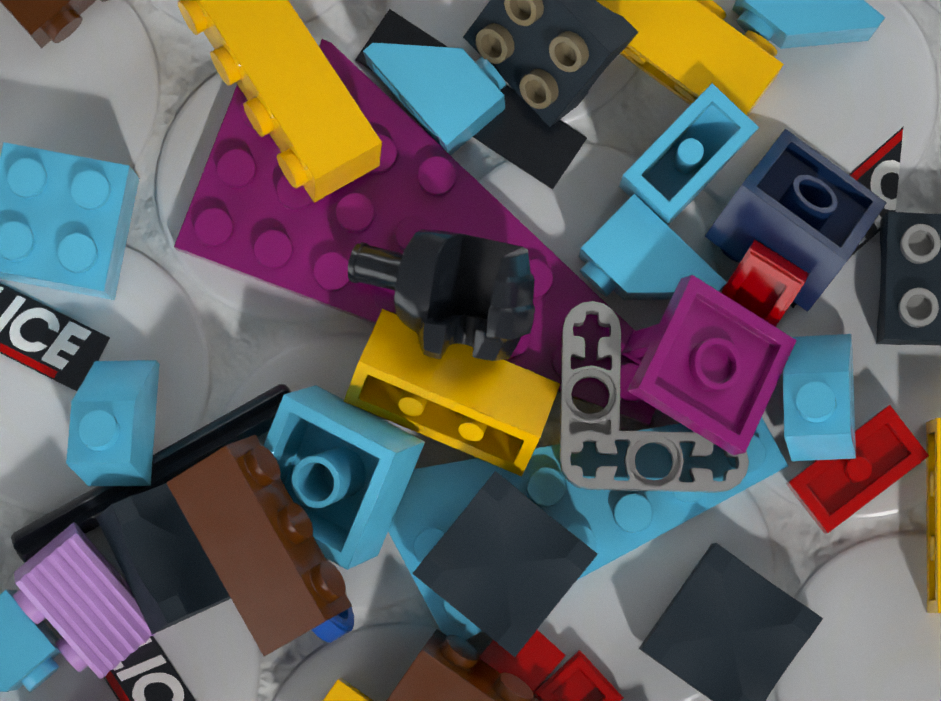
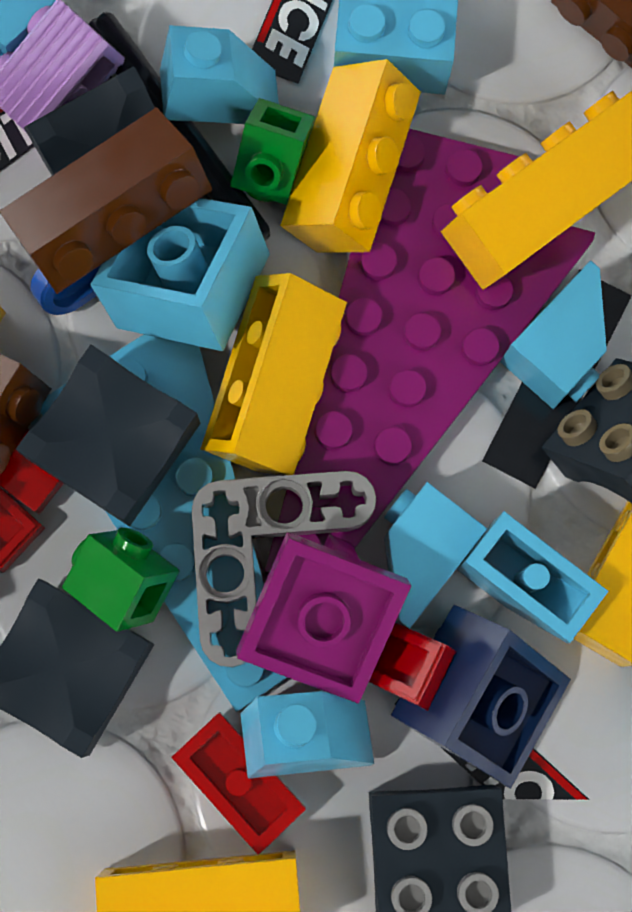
camera: 75 degrees right, 5 degrees down
(203, 369) = (271, 151): none -> green brick
(218, 286) = (351, 157): none -> yellow brick
(454, 290) = (369, 361): black piece -> none
(646, 568) = (120, 578): none -> green brick

